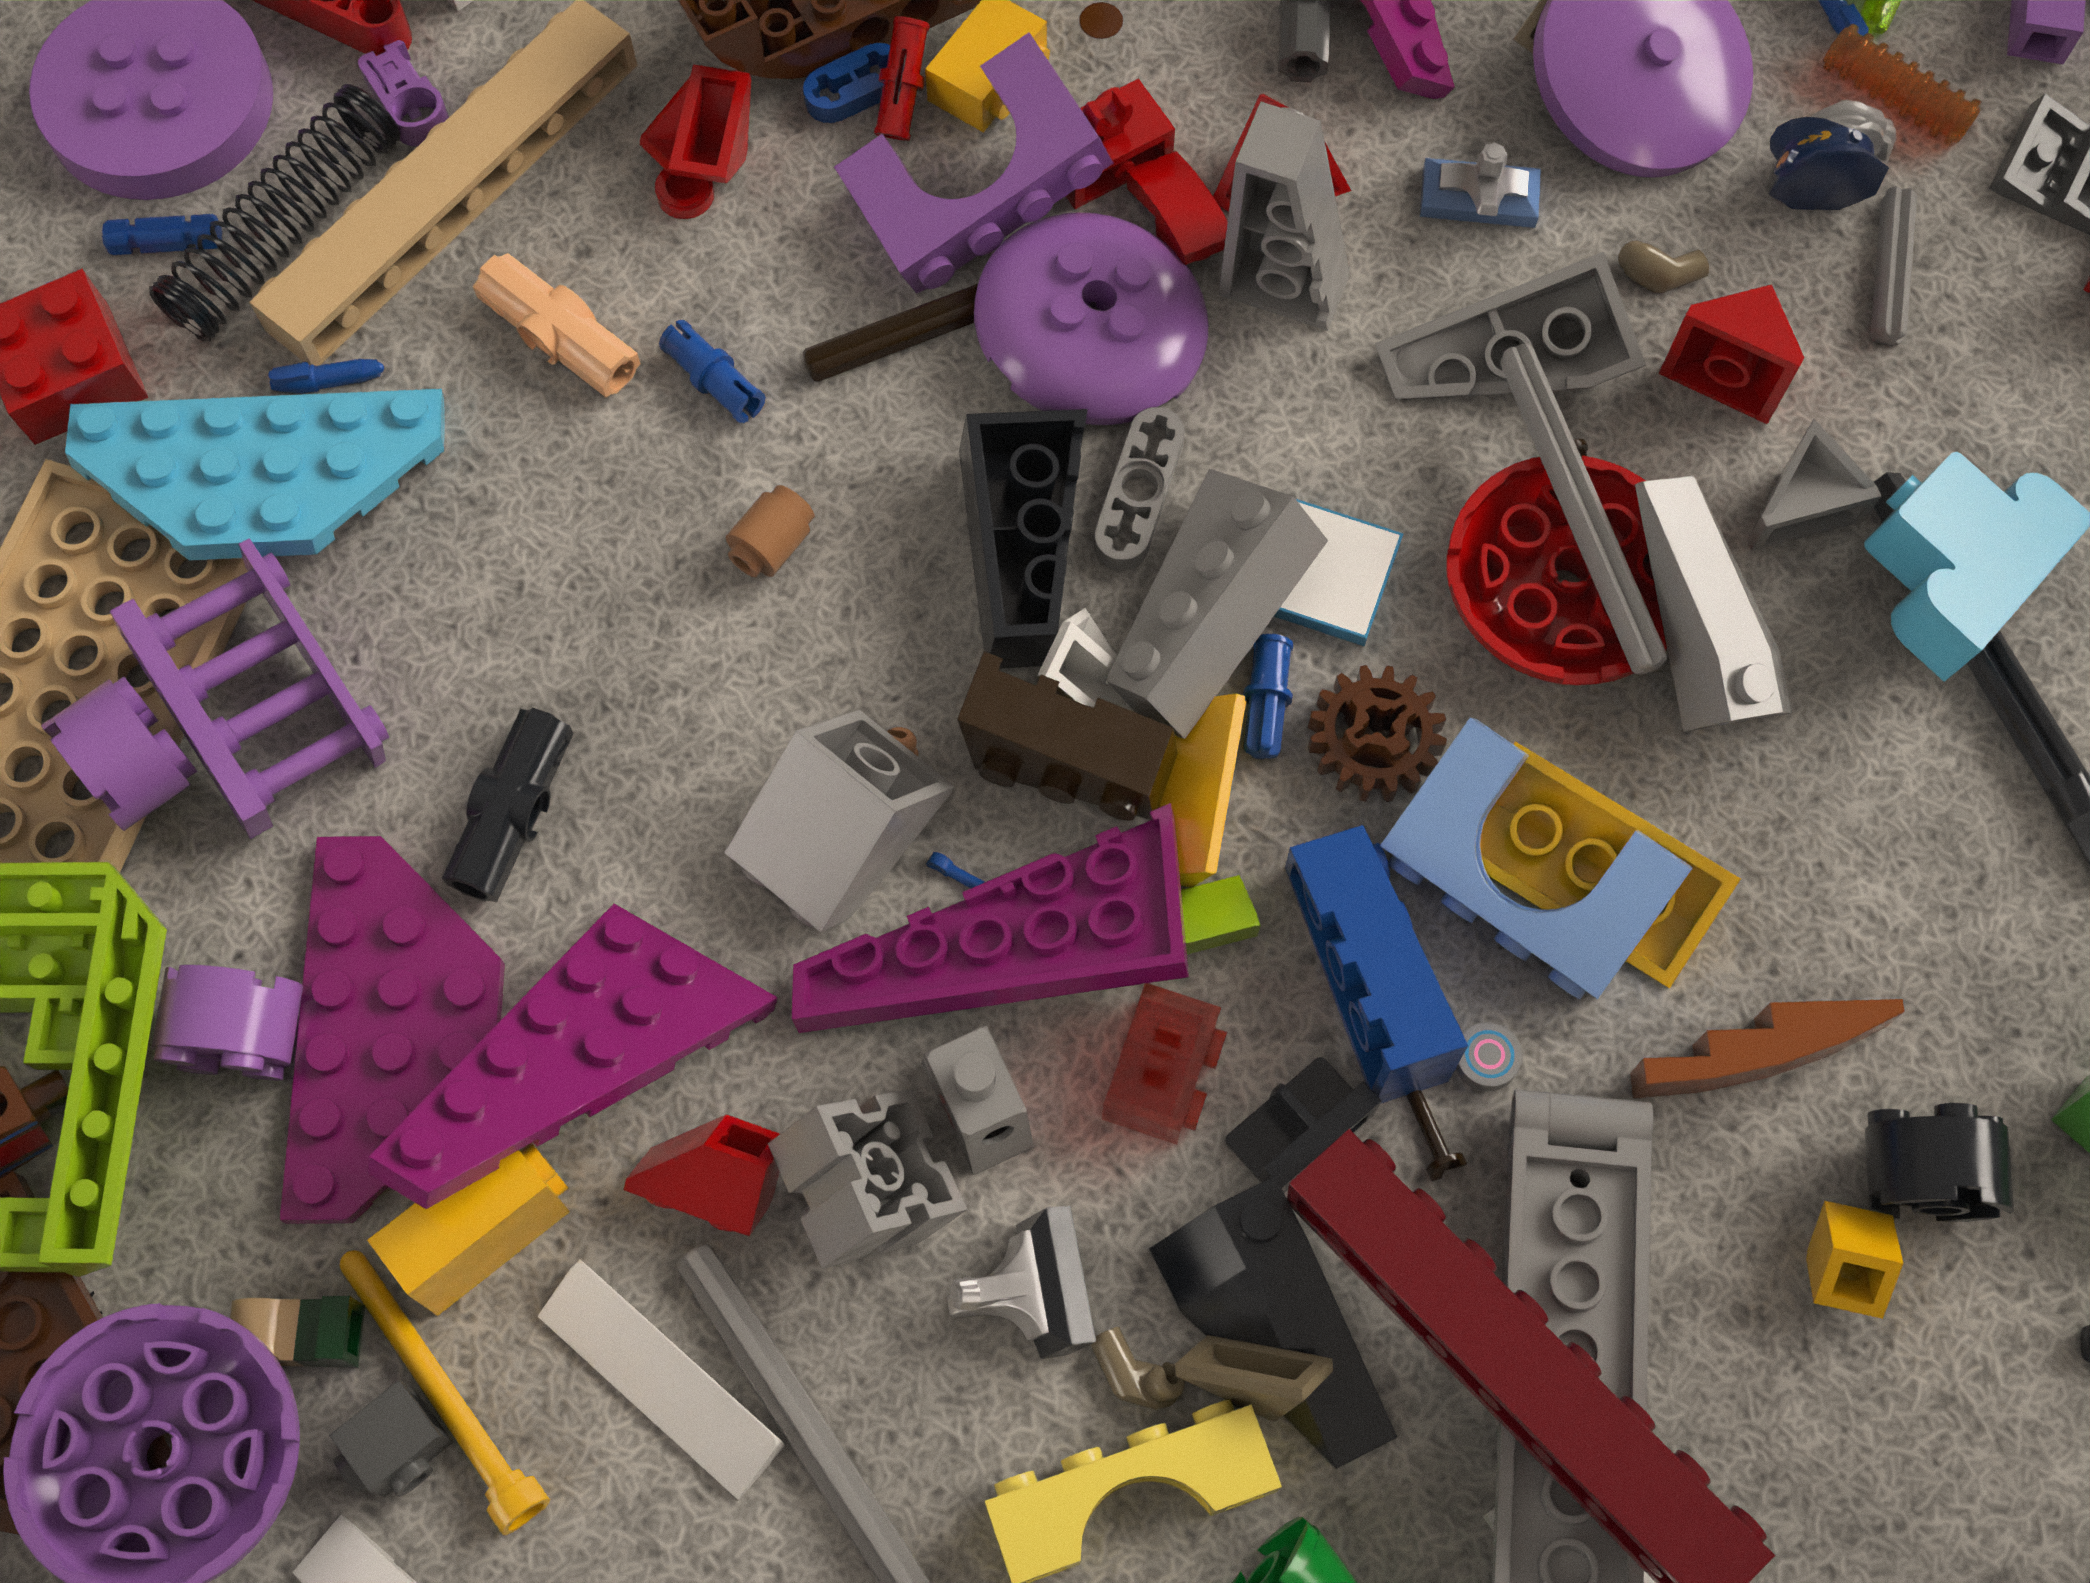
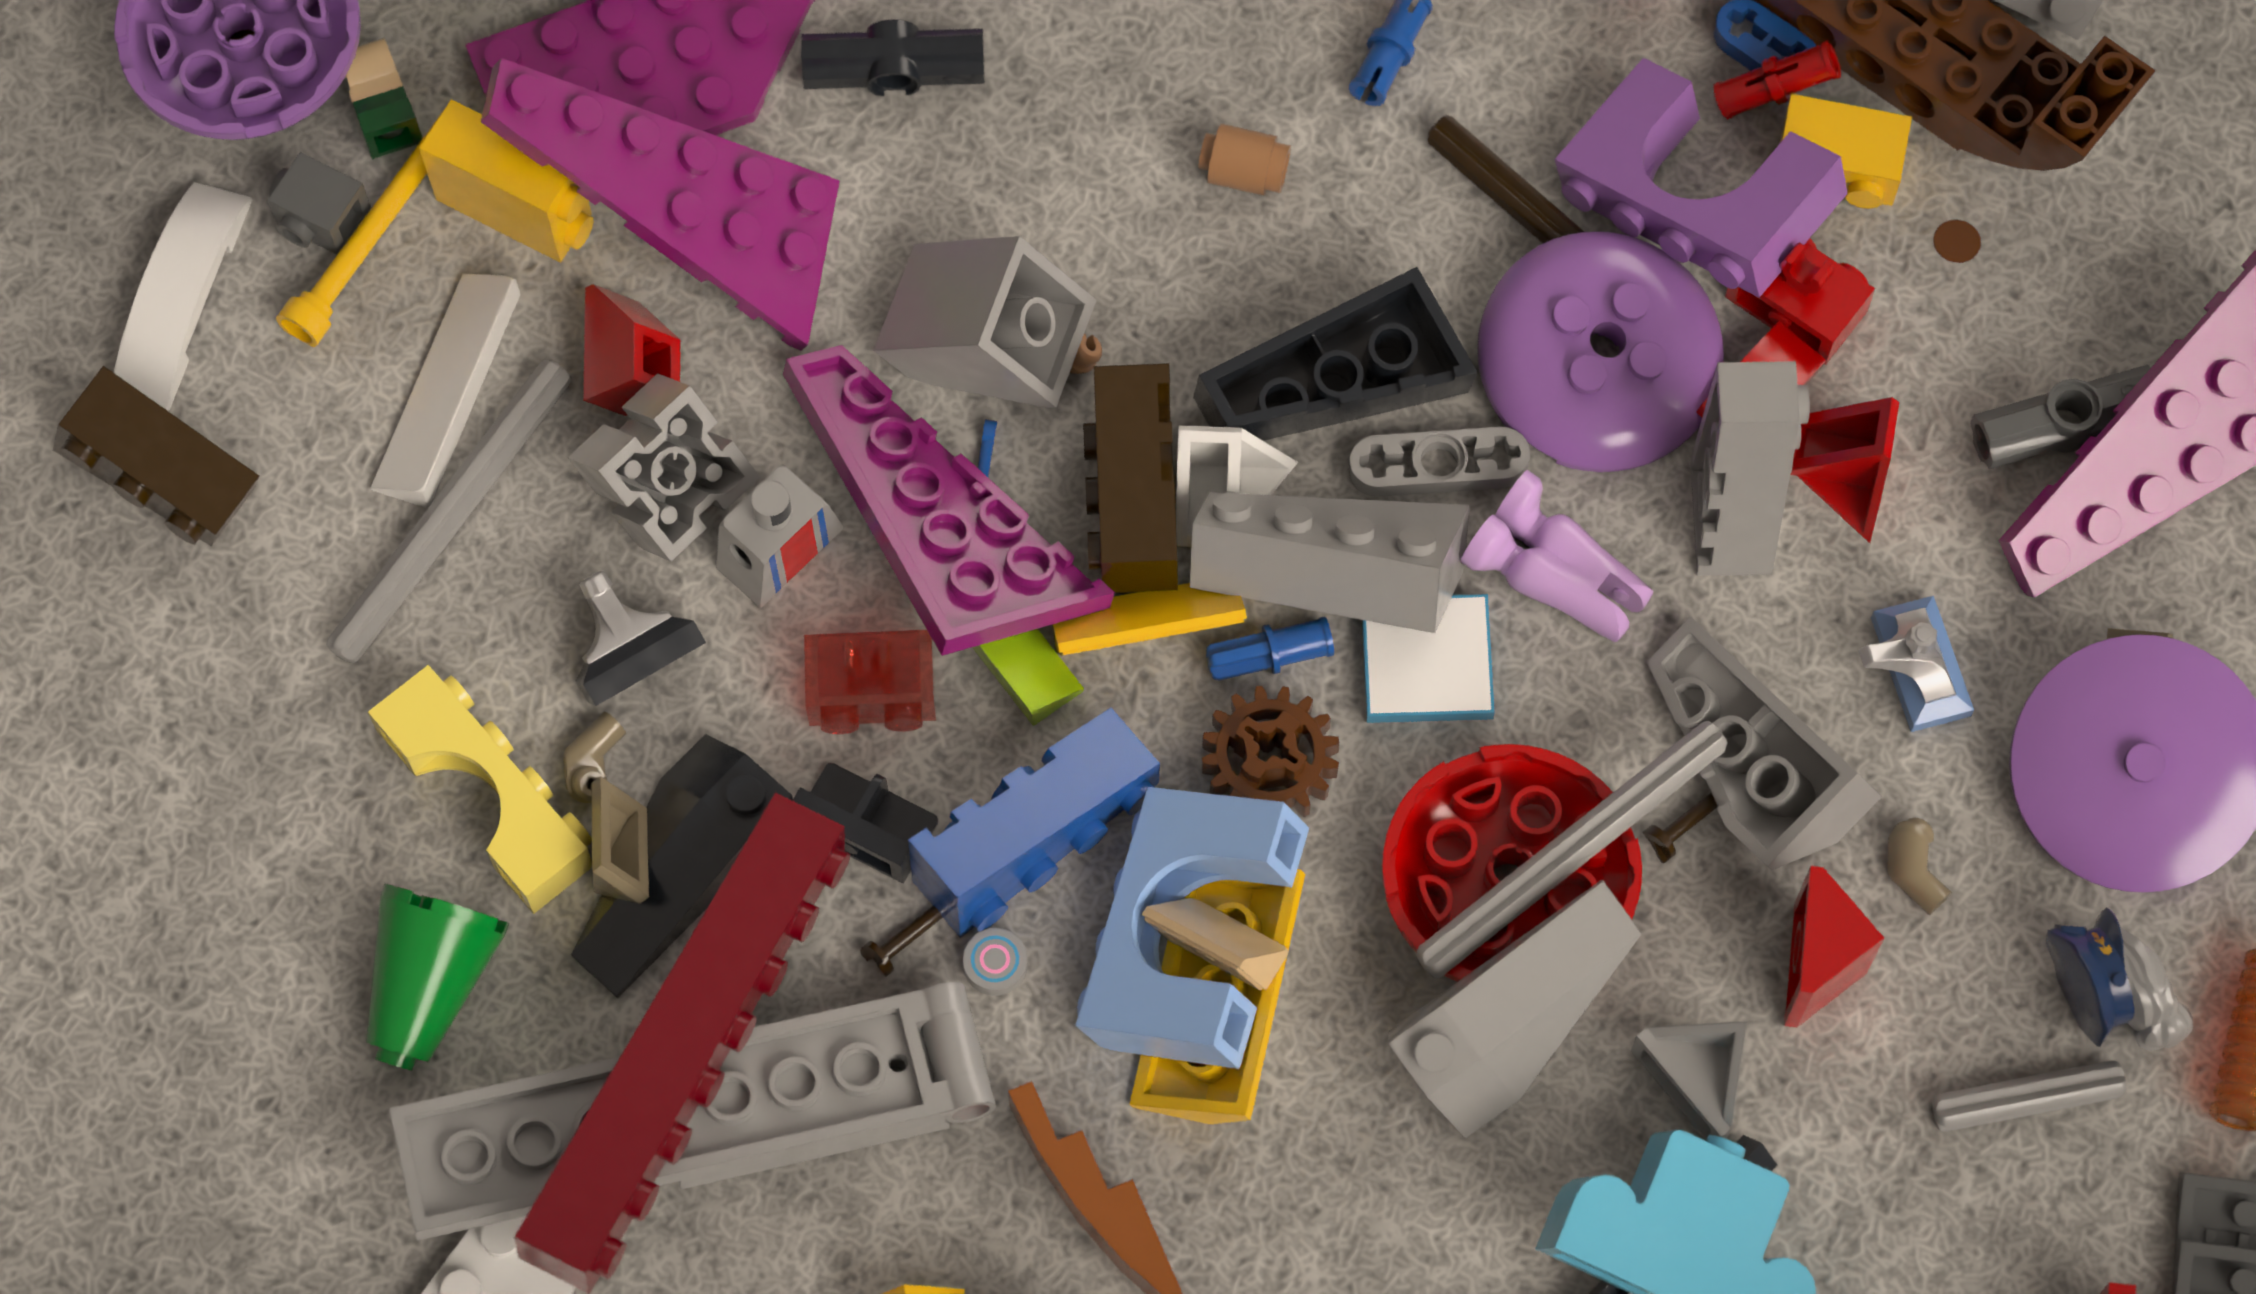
camera: 70 degrees right, 0 degrees up
(1282, 422) = (1559, 566): none -> lavender piece
(1555, 837) = (1218, 940): none -> tan slope

